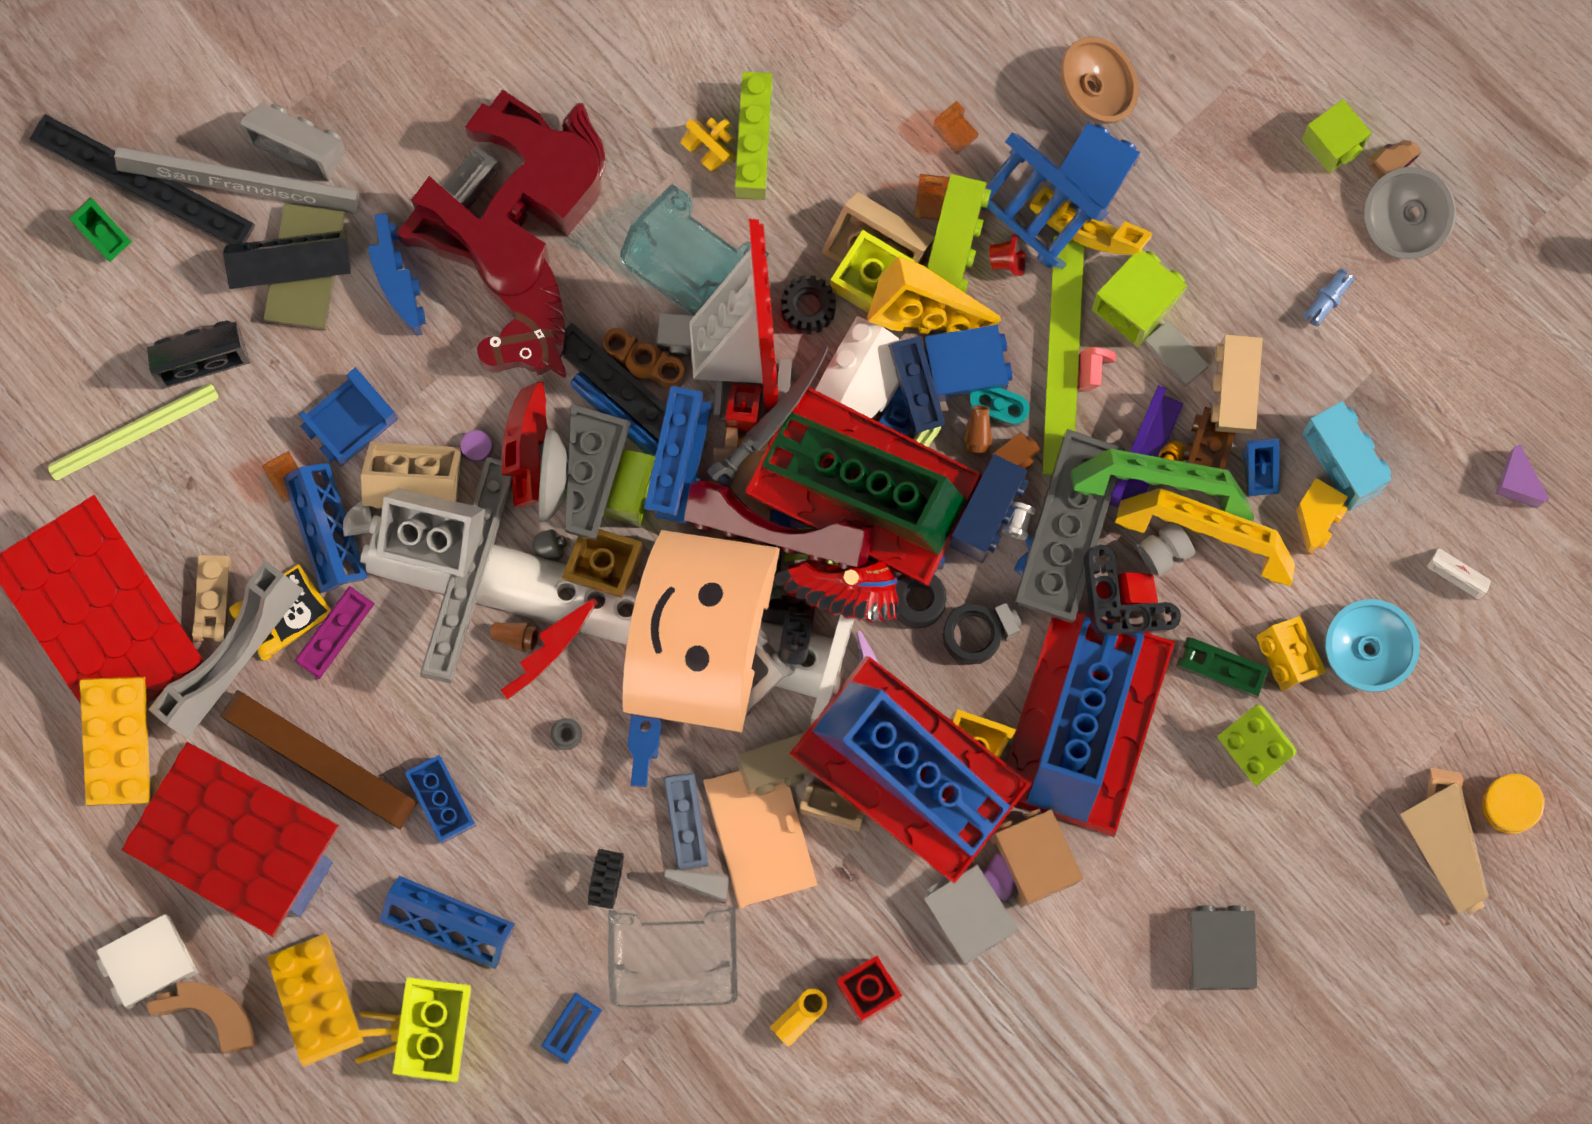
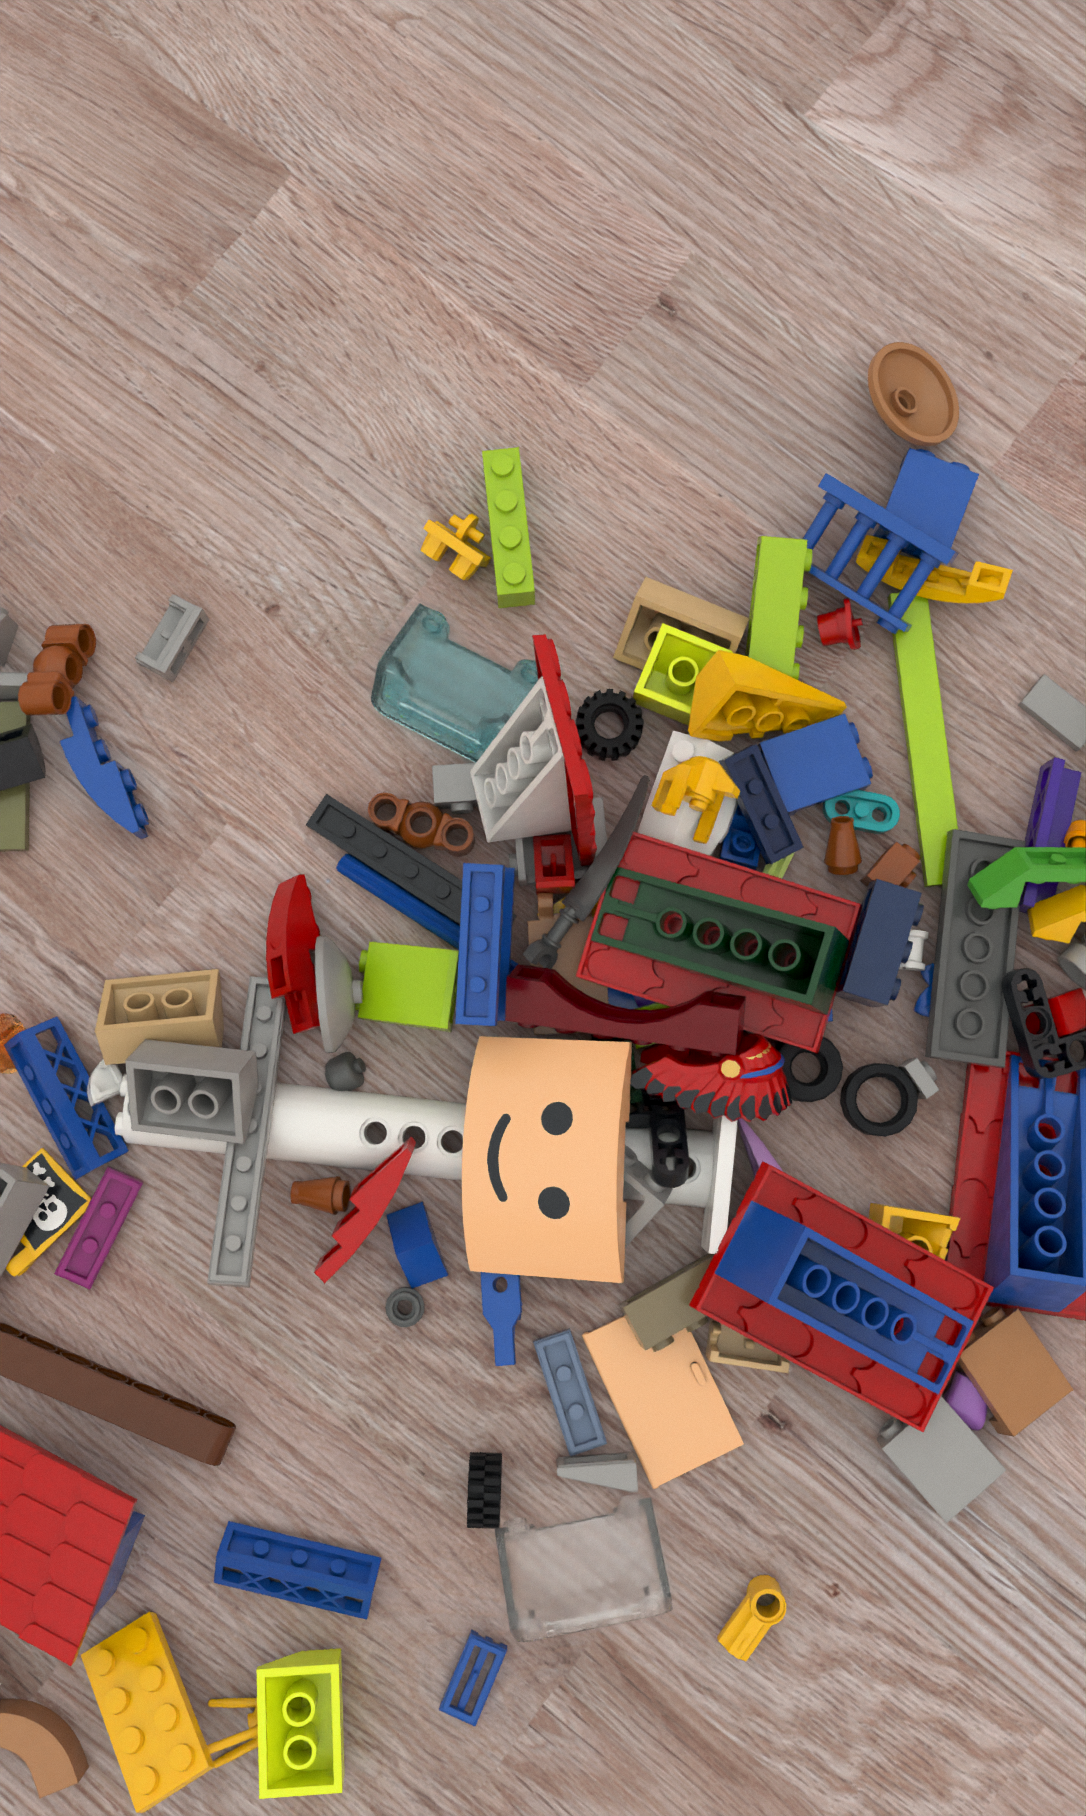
camera: 10 degrees left, 5 degrees up
(348, 419) = (72, 958): blue panel -> none
(375, 190) = (57, 669): none -> dark orange piece
(440, 799) = (263, 1418): blue piece -> none
(476, 446) = (236, 965): medium lavender tile -> none
(556, 185) = (277, 624): dark red animal -> none
(584, 688) = (416, 1245): none -> blue slope
(592, 466) = (381, 971): dark grey wing -> none
(604, 564) = (414, 1091): pearl gold slope -> none
(869, 360) = (702, 785): none -> yellow piece
(869, 989) = (833, 1575): red head -> none
(930, 196) = (734, 568): clear orange panel -> none
(955, 128) = (747, 482): clear orange panel -> none
(1091, 367) = (964, 746): coral tile -> none
(1139, 296) = (1008, 652): lime slope -> none

